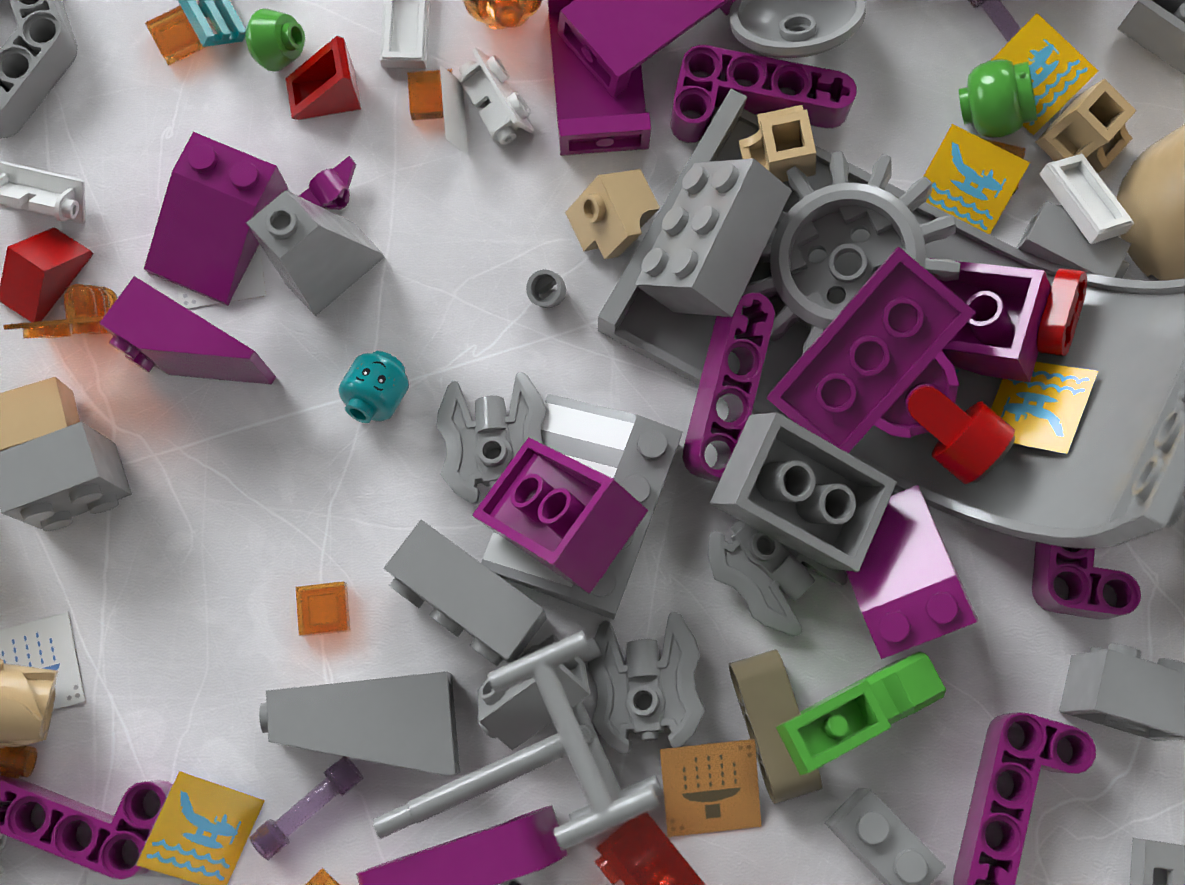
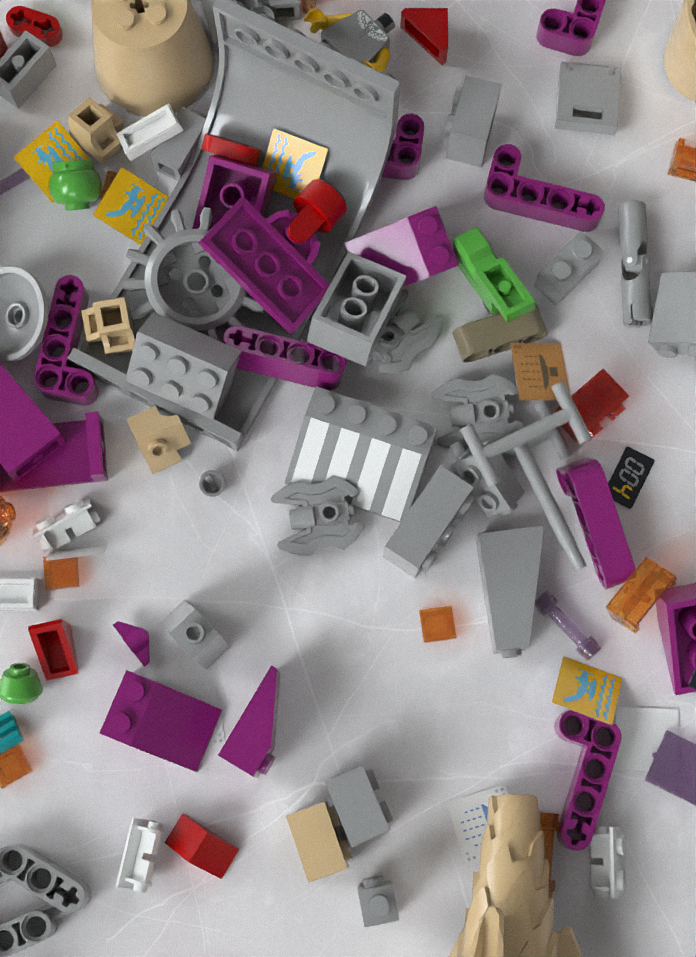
camera: 90 degrees left, 0 degrees up
(83, 308) = (243, 796): clear orange hinge -> none
(373, 387) = (284, 596): teal head -> none
(561, 513) = (374, 461): magenta slope -> none

